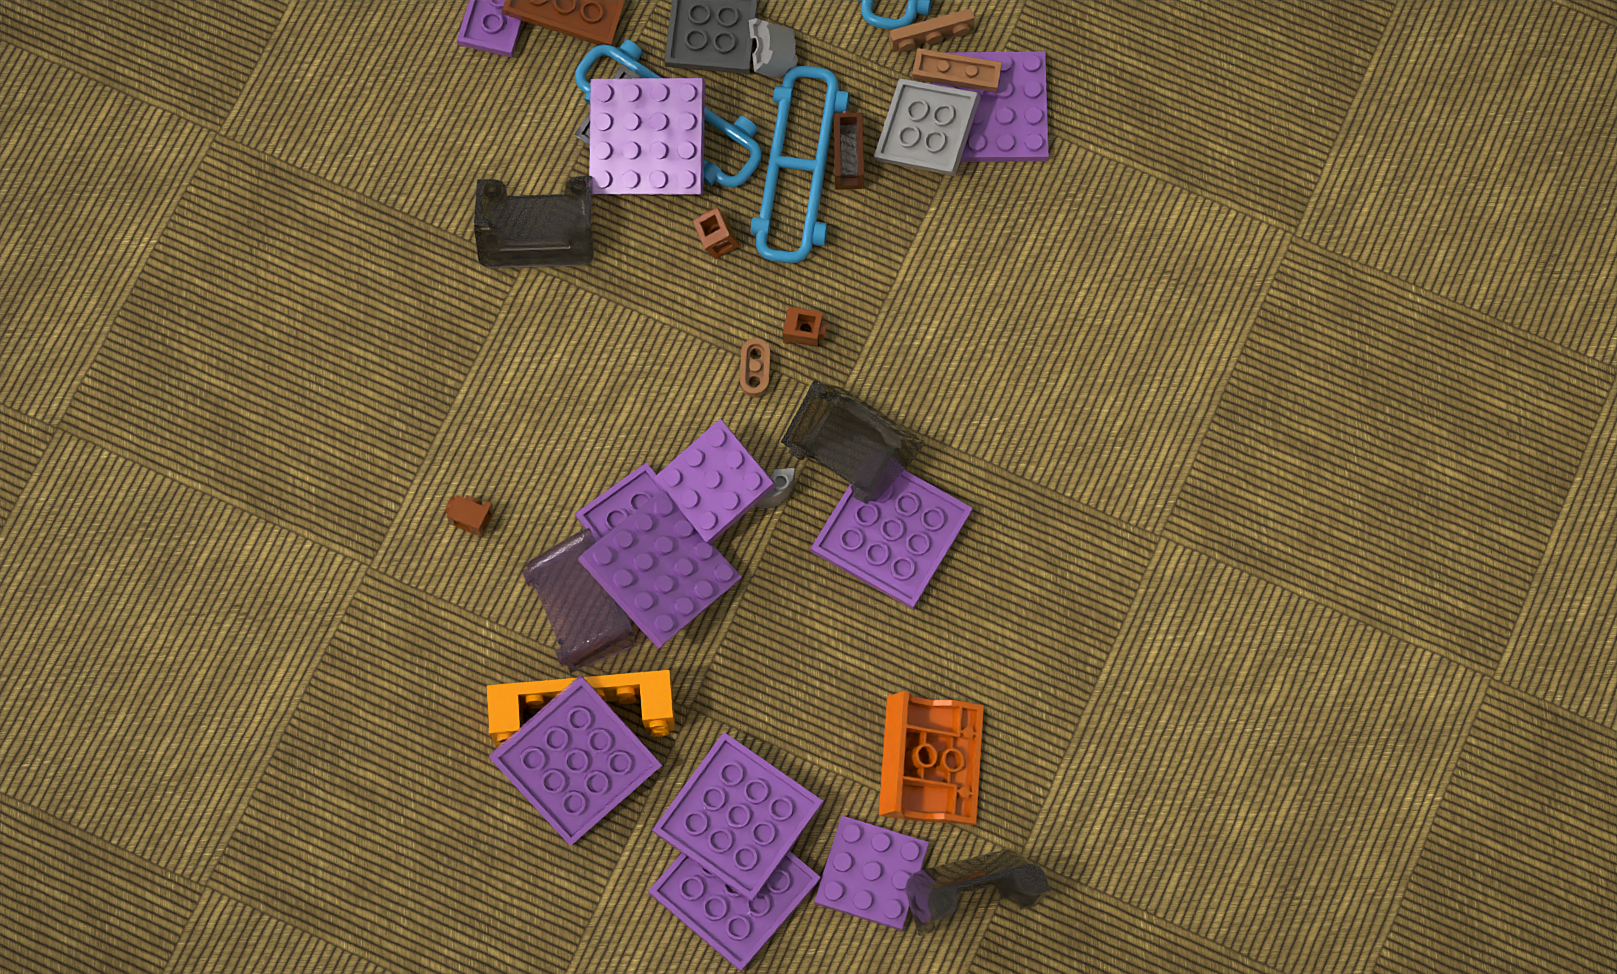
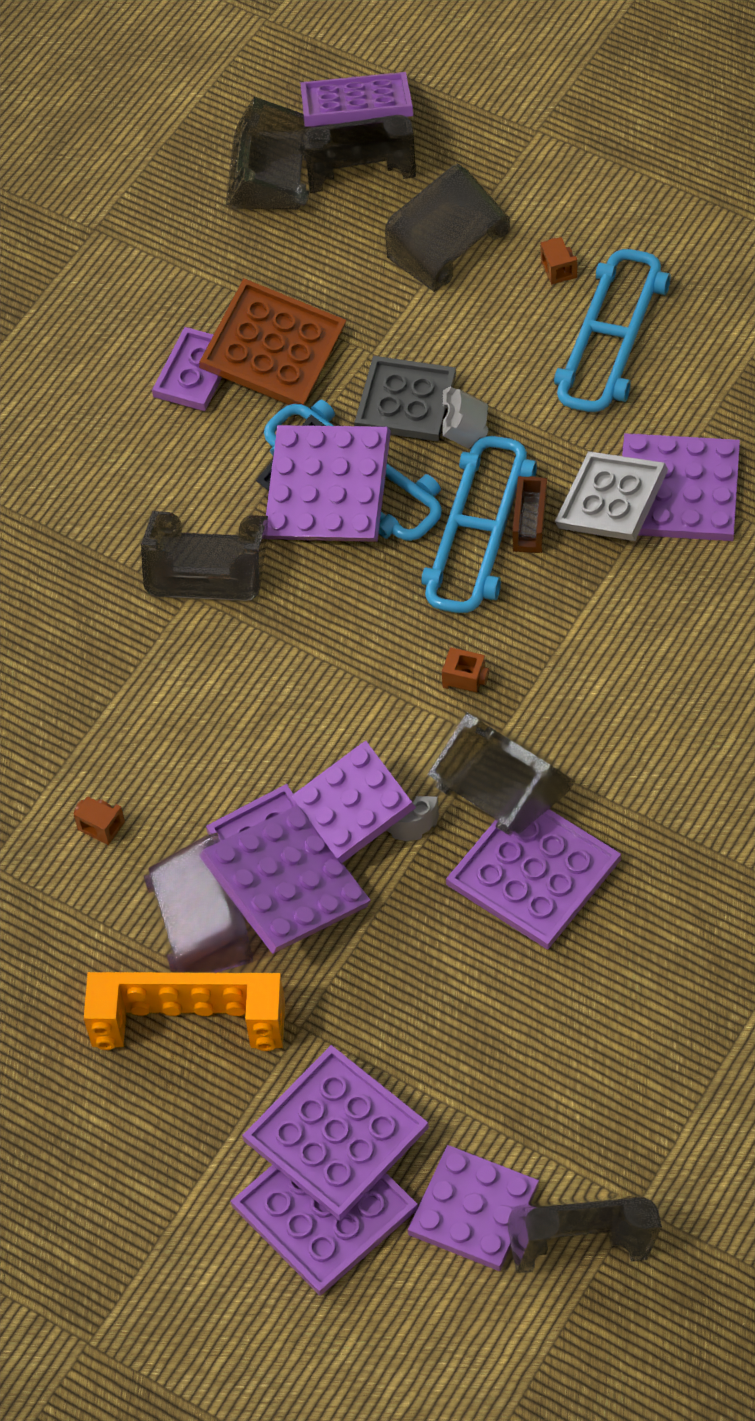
camera: 10 degrees right, 15 degrees down
(575, 760) = (170, 1058): medium lavender plate -> none
(716, 233) = (386, 578): dark orange brick -> none
(755, 369) = (409, 707): medium nougat plate -> none
(931, 30) = (626, 413): medium nougat plate -> none
(931, 760) = (550, 1098): orange piece -> none
(956, 70) = (647, 446): medium nougat plate -> none

